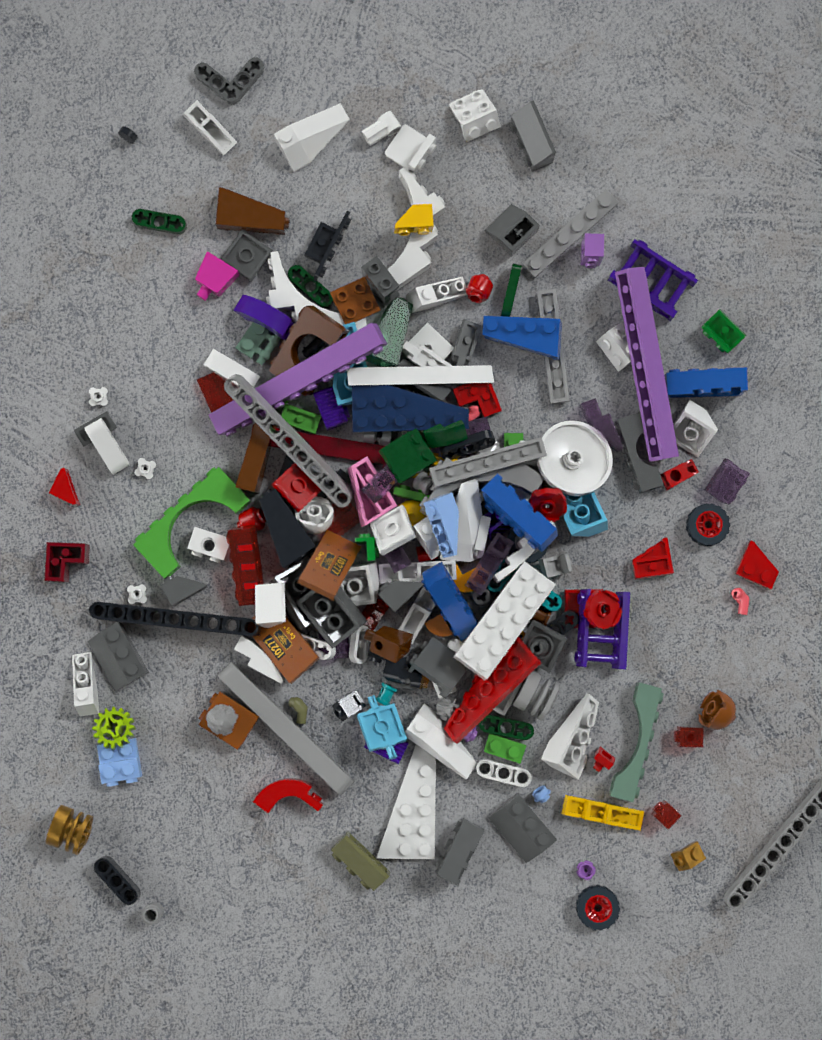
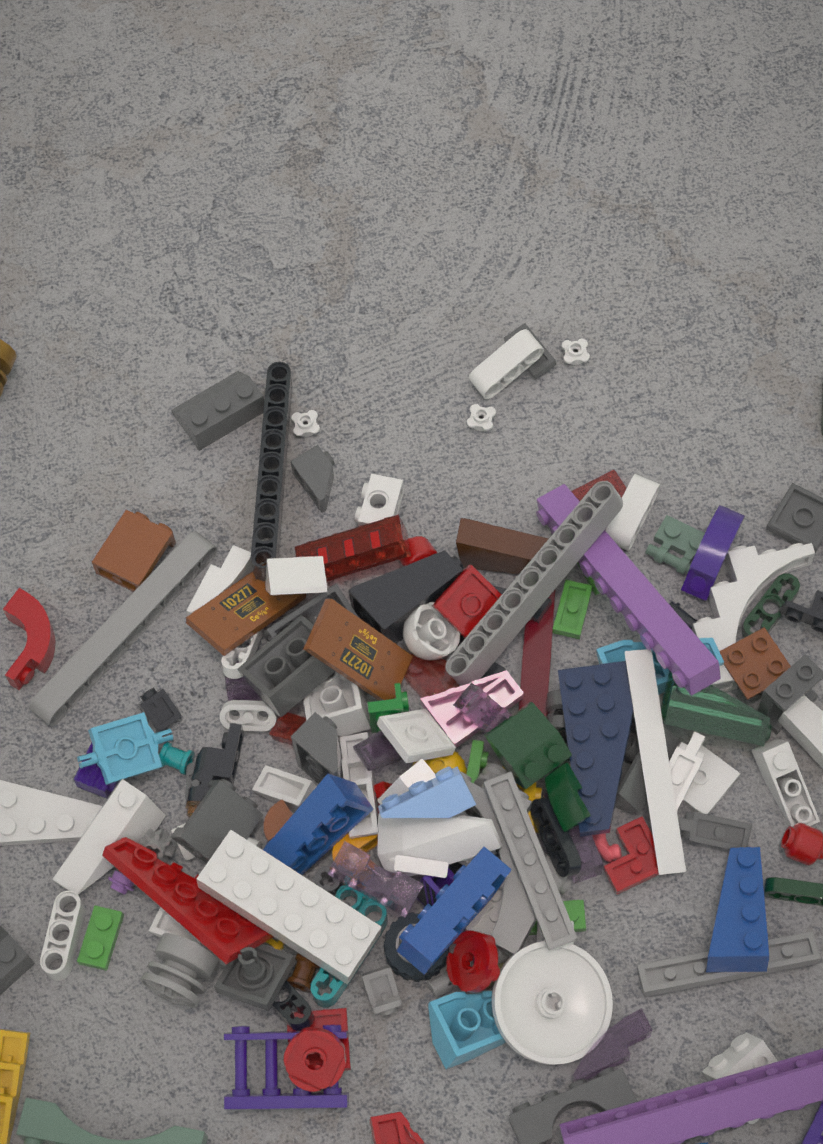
camera: 90 degrees right, 20 degrees down
(59, 559) = (345, 322): dark red brick -> none
(64, 488) = (445, 321): red slope -> none
(84, 685) = (177, 370): white slope -> none
(106, 730) = (120, 409): lime gear -> none
(119, 763) = (74, 423): light blue plate -> none
(156, 543) = (378, 439): bright green arch -> none
(214, 276) = (765, 477): dark pink torso -> none
(221, 719) = (132, 531): light grey piece -> none
(301, 709) = (154, 645): olive arm -> none
(313, 322) = (713, 599): reddish brown arch -> none
(331, 413) = (581, 647): dark purple brick -> none
(389, 642) = (250, 753): reddish brown torso -> none
(515, 559) = (390, 925): white slope -> none
(519, 734) = (136, 959): dark green beam -> none
(541, 794) = (30, 996): light blue plate -> none
(568, 745) = (111, 1035): white wedge -> none
(603, 759) = (84, 1087): red tile -> none

